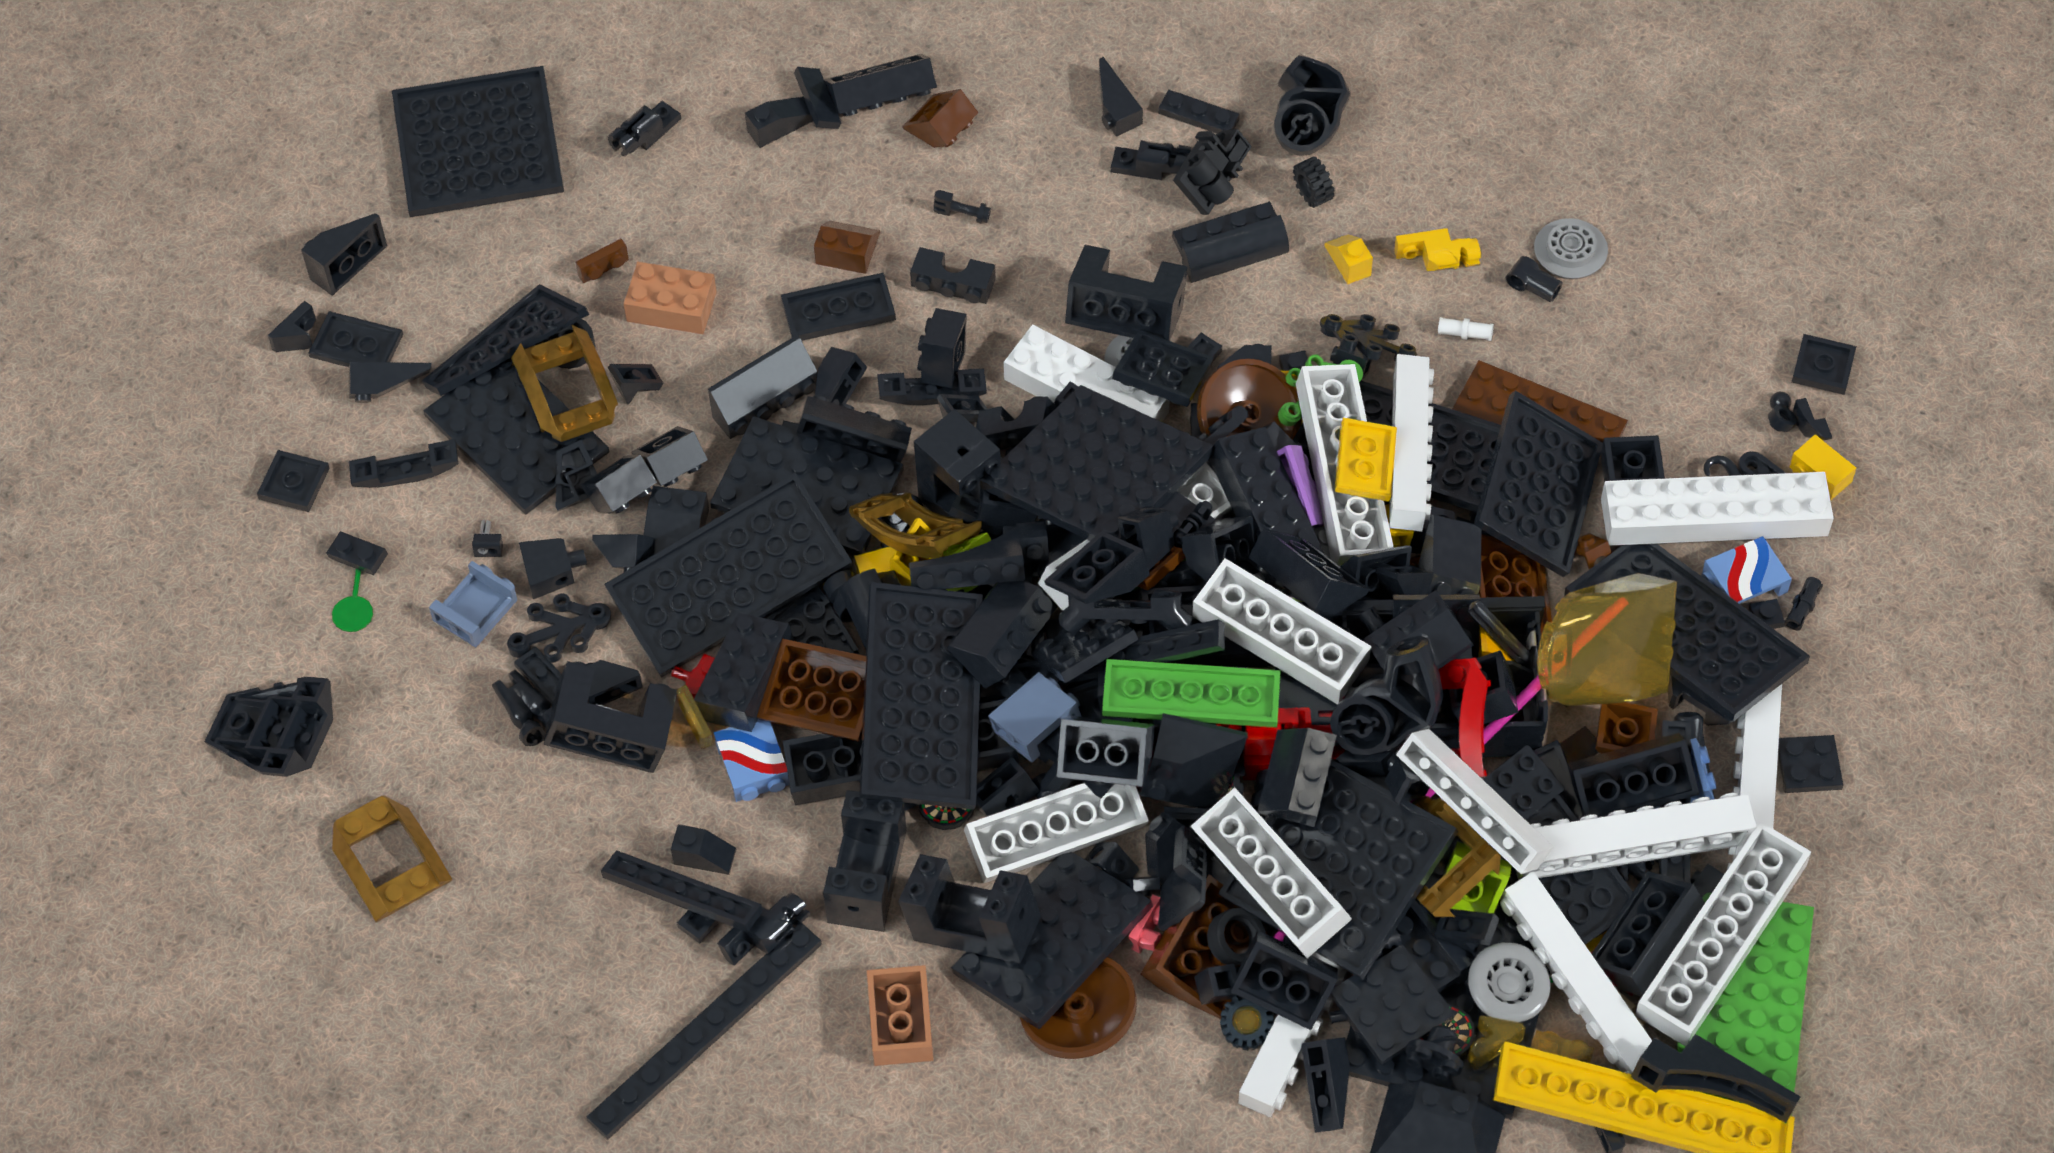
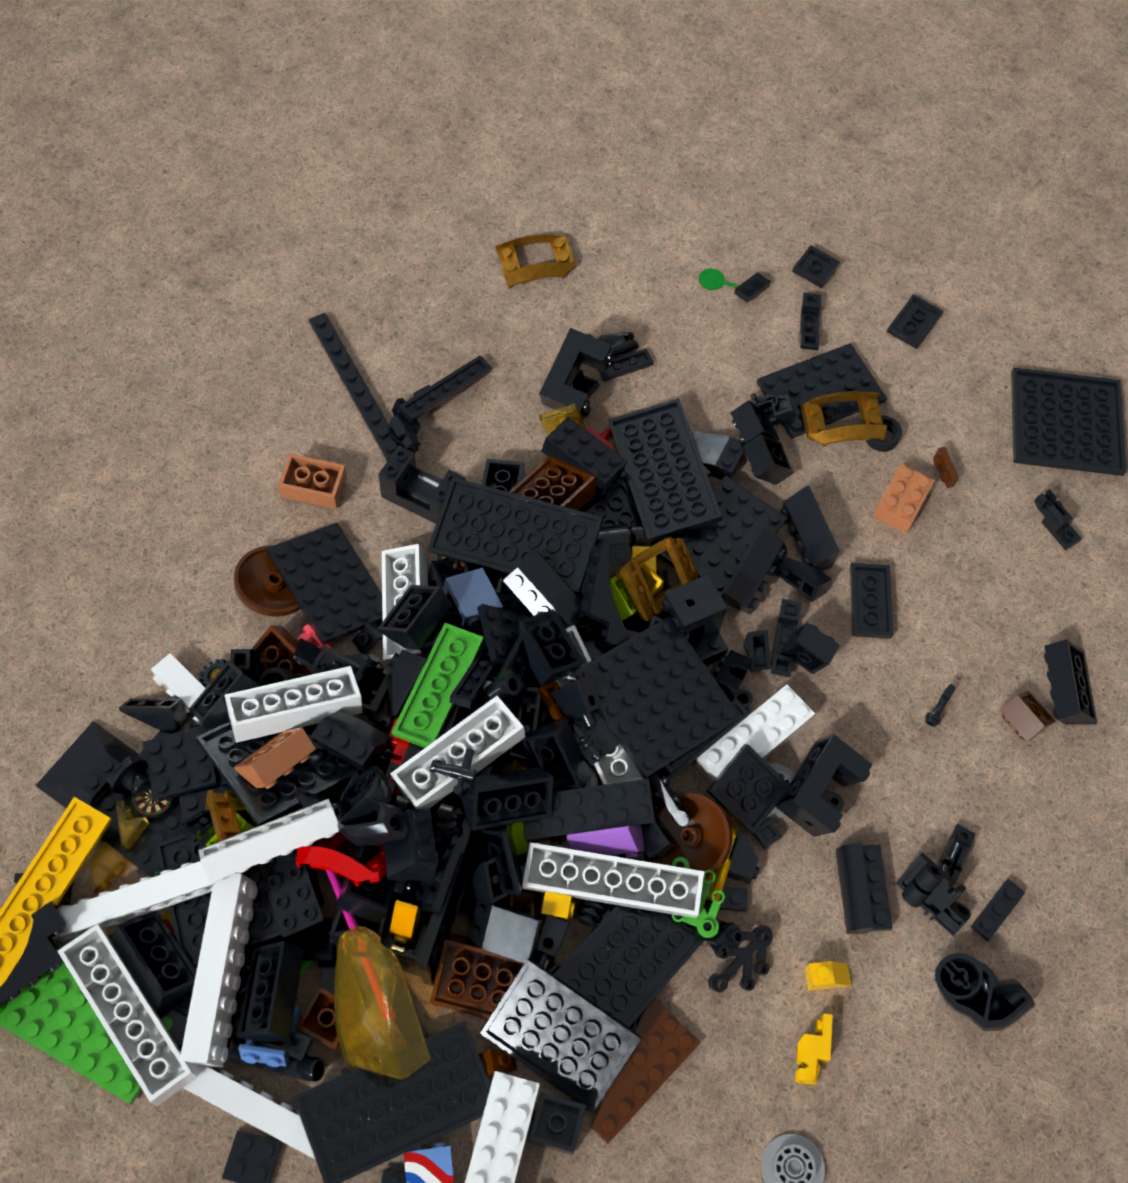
camera: 100 degrees right, 5 degrees up
(275, 727) = (637, 221): black wedge -> none
(292, 331) = (931, 286): black slope -> none
(343, 251) = (983, 320): black slope -> none
(375, 379) = (880, 318): black slope -> none
(475, 604) = (693, 336): sand blue panel -> none
(487, 544) = (738, 352): black piece -> none
(526, 322) = (898, 405): black wing -> none
(549, 565) = (709, 380): black torso -> none
(561, 627) = (661, 379): black plant -> none
(612, 682) = (612, 389): black slope -> none
(624, 550) = (706, 421): black slope -> none
(634, 378) = (840, 457): black slope -> none
(701, 850) = (473, 410): black slope -> none
(752, 760) = (524, 448): panel -> none
(776, 119) = (1050, 610): black slope -> none
(817, 98) = (1079, 636): black tile -> none
(845, 246) = (926, 620): reddish brown slope -> none
(969, 917) = (353, 541): black piece -> none
(971, 284) = (870, 693): black arch -> none
(1119, 107) = (1020, 846): black slope -> none
(1143, 884) = (345, 645): black plate -> none
(1313, 182) = (903, 968): black tyre -> none
(1313, 608) = (462, 773): none -> black piece
(1358, 854) = (276, 758): none -> nougat slope
(1365, 459) = (607, 891): yellow tile -> none
(1412, 451) = (623, 941): white brick -> none
(1465, 329) = (733, 1043): white pin -> none
(1498, 632) = (408, 918): black axle -> none
(1508, 983) = (160, 846): light grey wheel -> none
(1528, 276) = (770, 1116): black piece -> none

